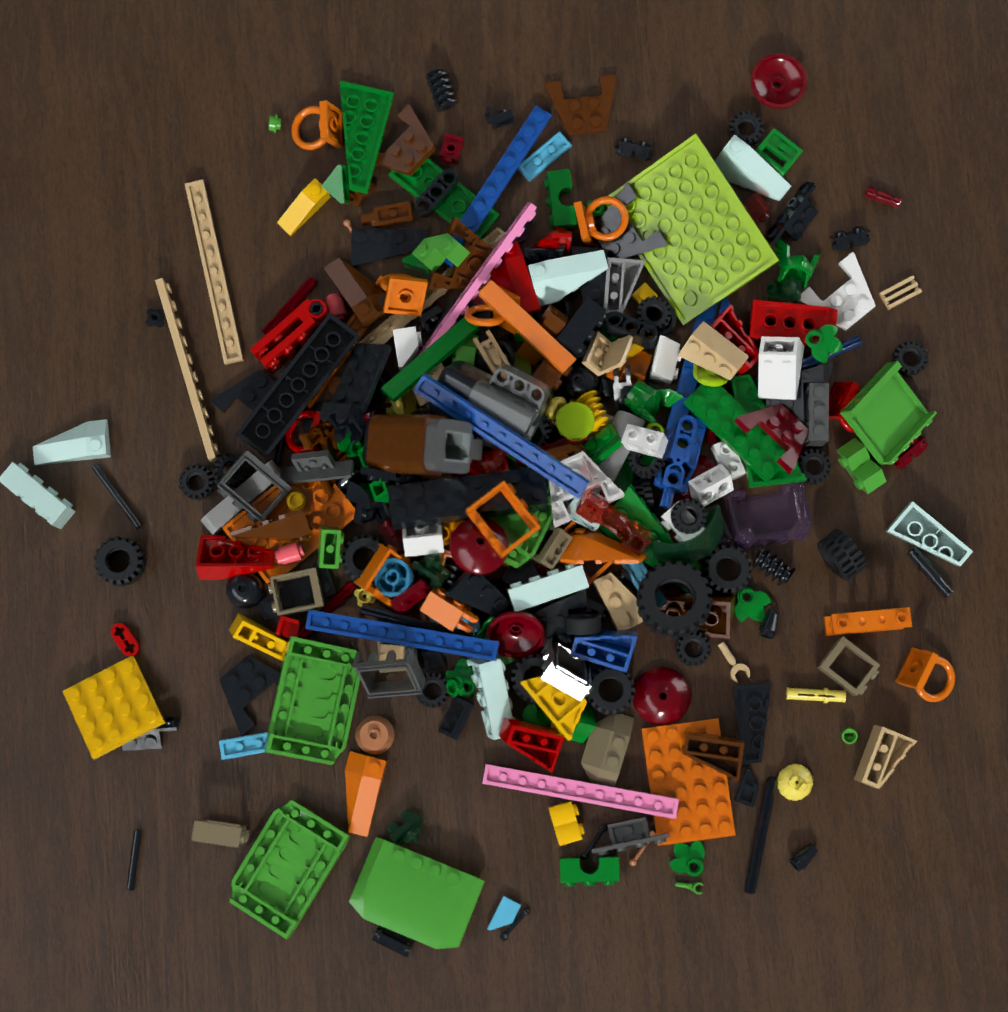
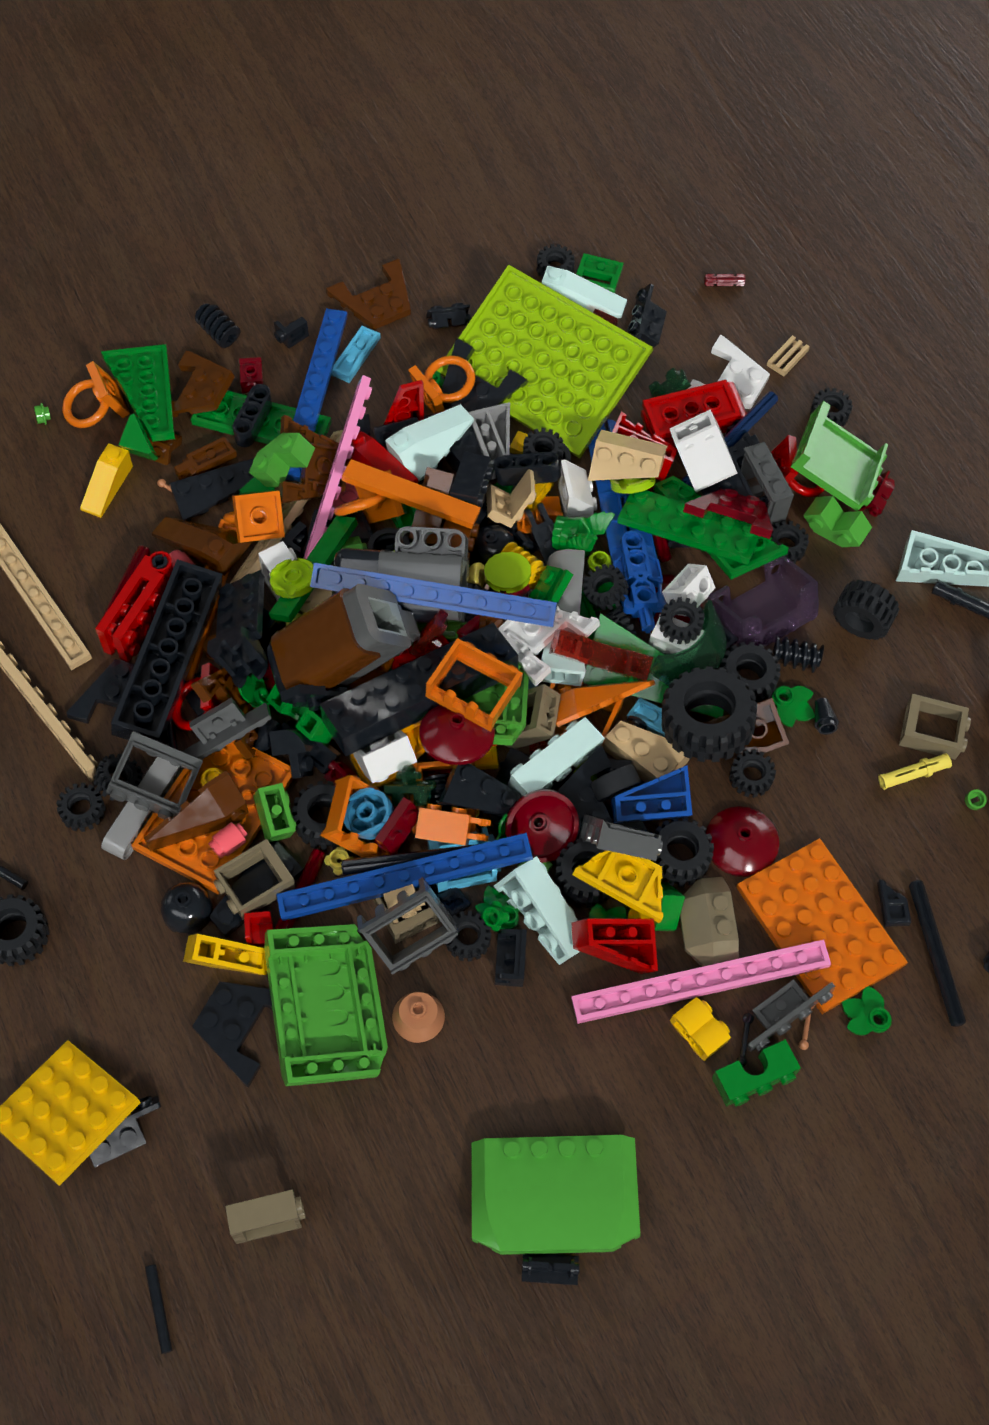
camera: 25 degrees left, 20 degrees down
(122, 642) = (55, 1021): red beam -> none
(225, 558) = (145, 879): red wedge -> none
(242, 746) = (256, 1097): medium azure tile -> none
(287, 867) = (371, 1230): bright green slope -> none
(363, 785) = (428, 1084): orange wedge -> none
(408, 830) = (510, 1114): clear green hips -> none
(409, 365) = (291, 578): none -> lime tile
(492, 353) = (377, 537): tan hinge -> none
(504, 914) = (677, 1174): medium azure tile -> none
(525, 912) = (689, 1205): black hinge -> none
(558, 183) = (383, 370): green arch -> none
(644, 441) = (595, 561): white brick -> none
(690, 886) = (888, 1045): bright green hand -> none
(714, 751) = (838, 869): reddish brown wedge -> none
(730, 461) = (684, 555): white brick -> none
(730, 658) = (815, 774): tan piece -> none
(751, 718) = (852, 816): black wing -> none
(783, 71) = (568, 210): dark red dish -> none
(787, 779) = (937, 881): light yellow hair -> none
(794, 266) = (669, 358): green helmet -> none
(827, 342) = (740, 409): green plate -> none
(857, 236) = (704, 327): black hinge -> none
(867, 621) = (930, 667): orange fence -> none

